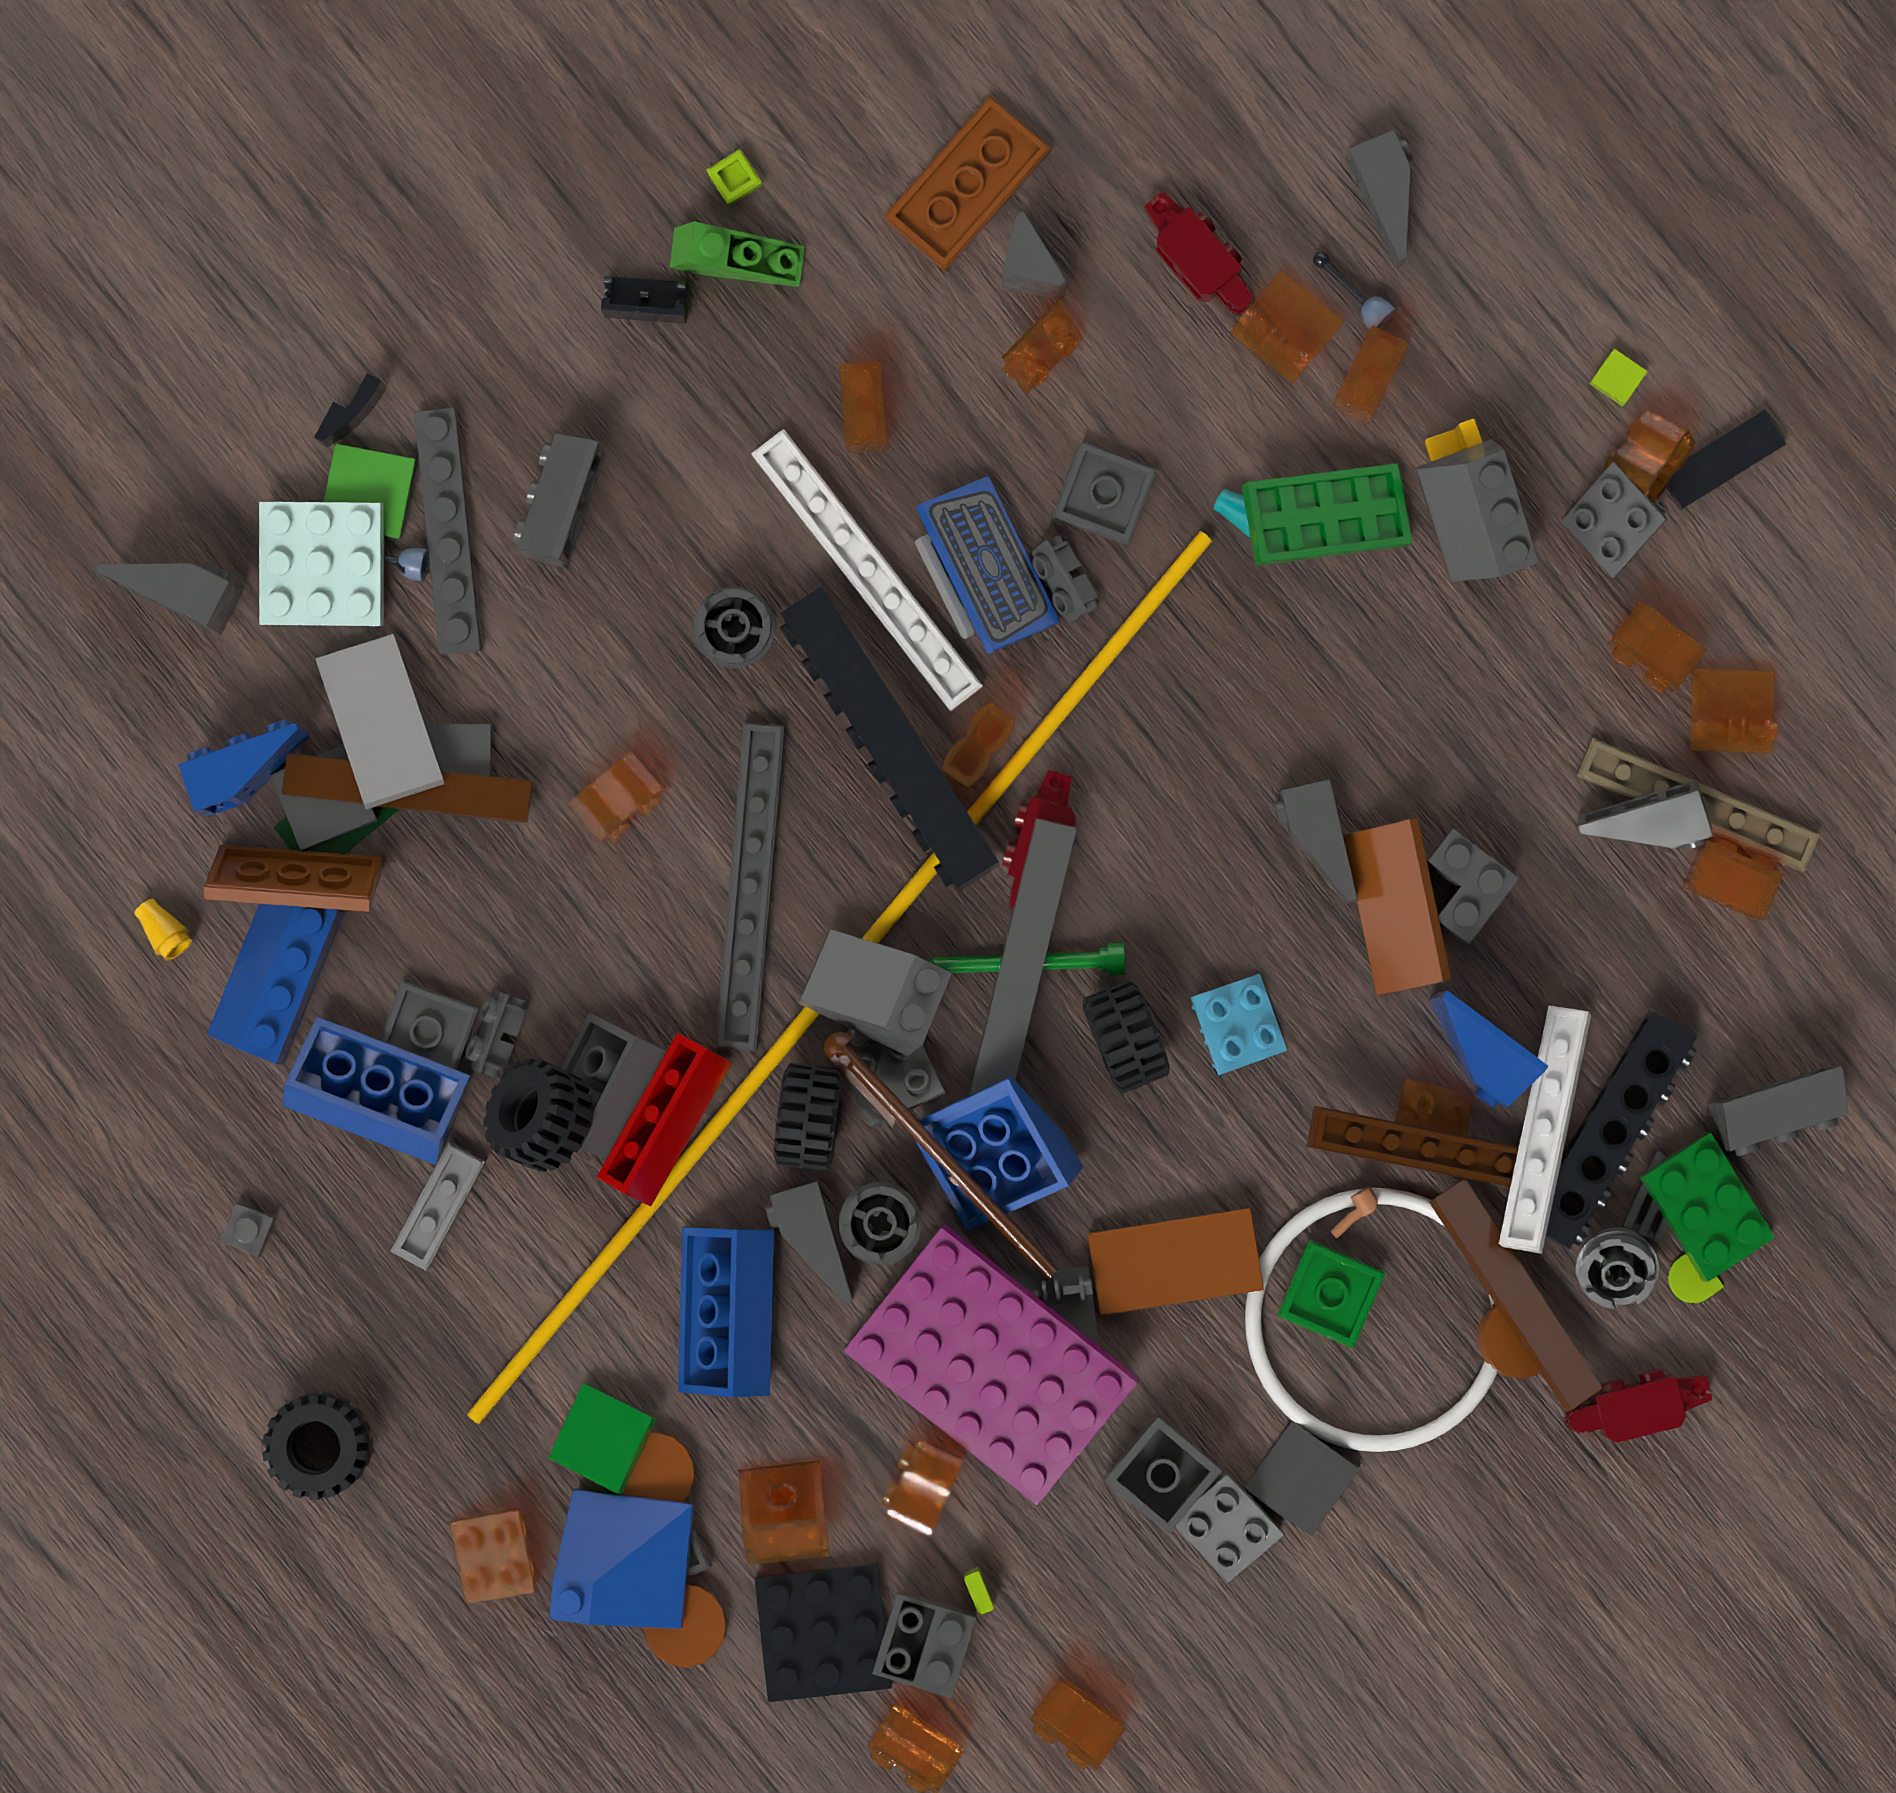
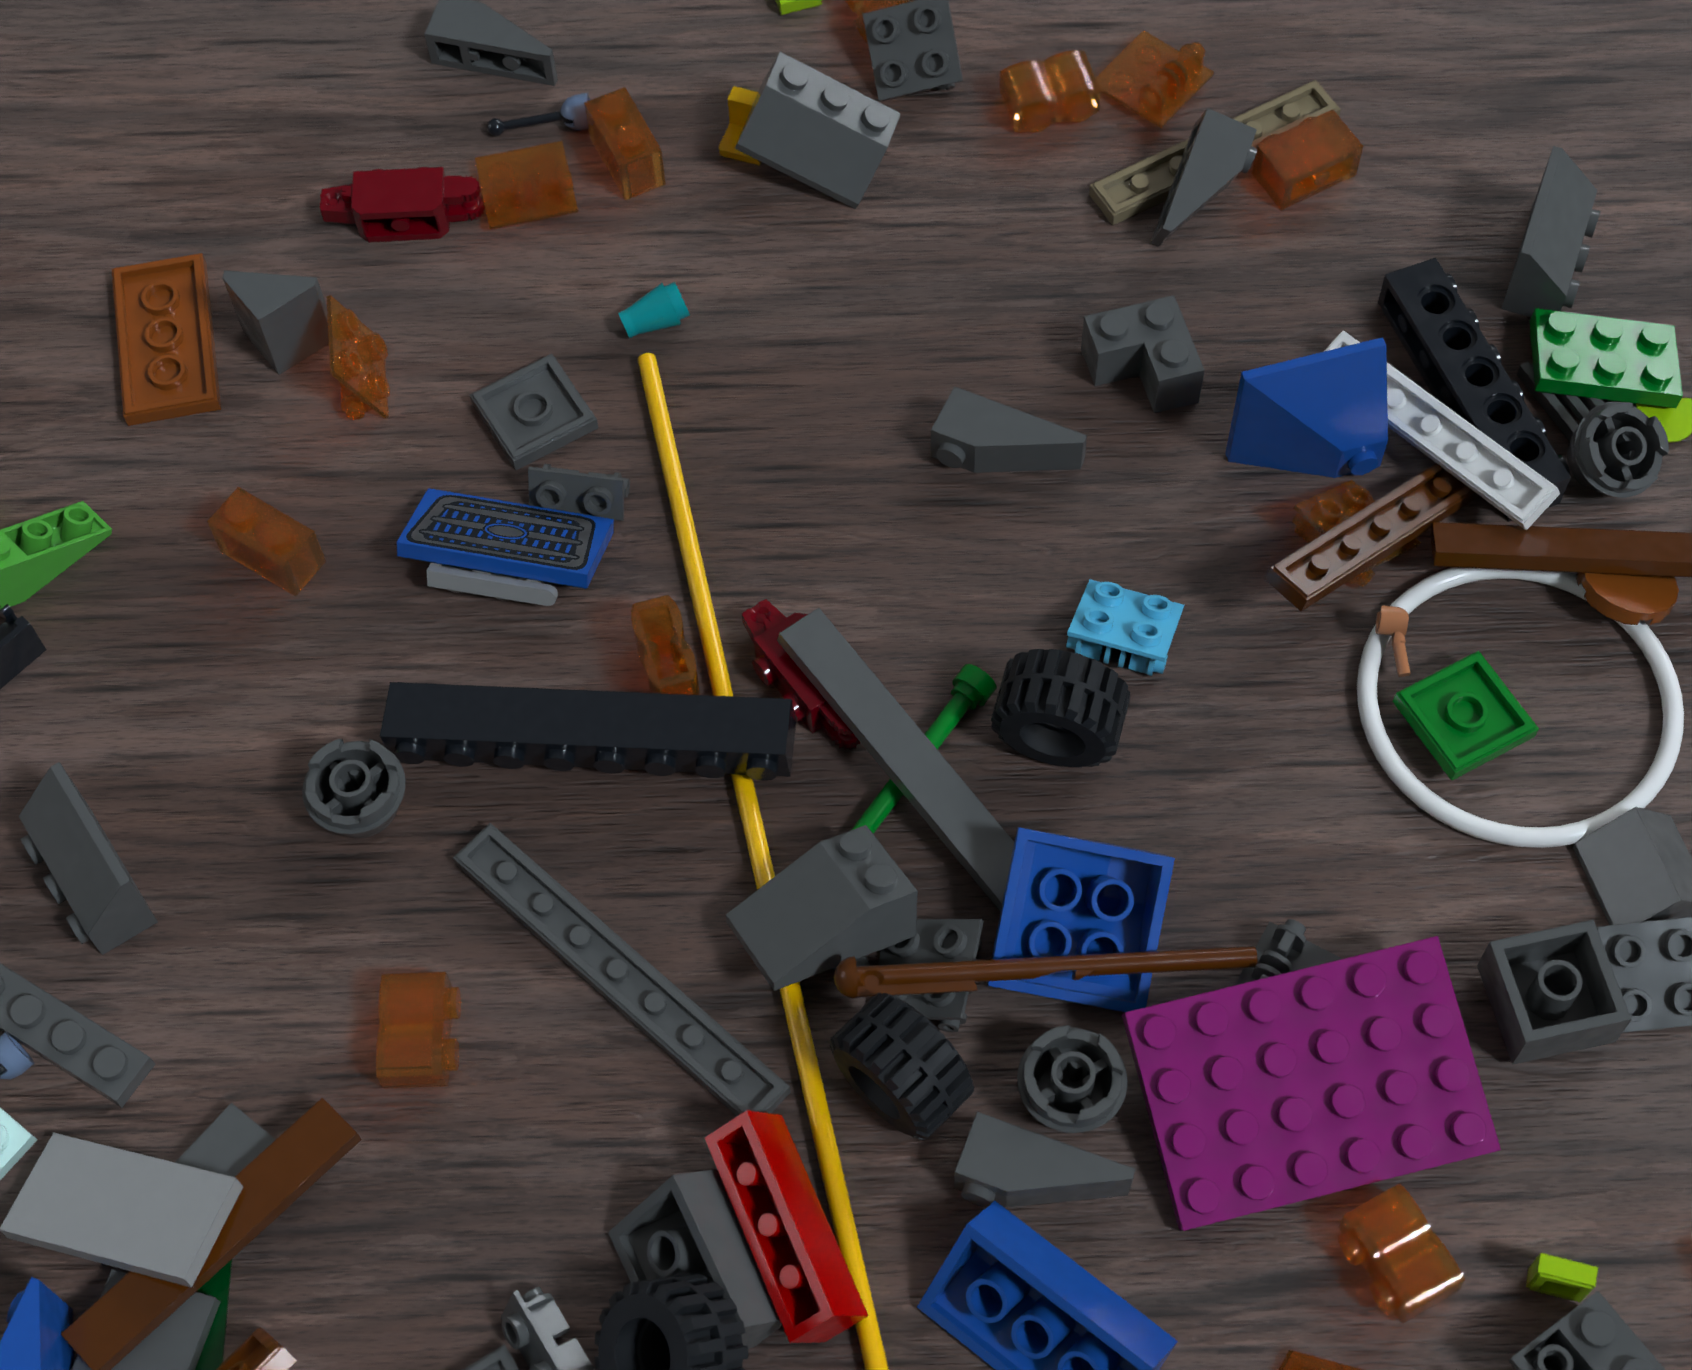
camera: 55 degrees left, 25 degrees down
(867, 570) = (415, 650): white tile -> none
(1175, 1261) = (1326, 834): dark orange tile -> none
(1326, 514) = (712, 242): green plate -> none
(1397, 907) = (1125, 412): dark orange tile -> none

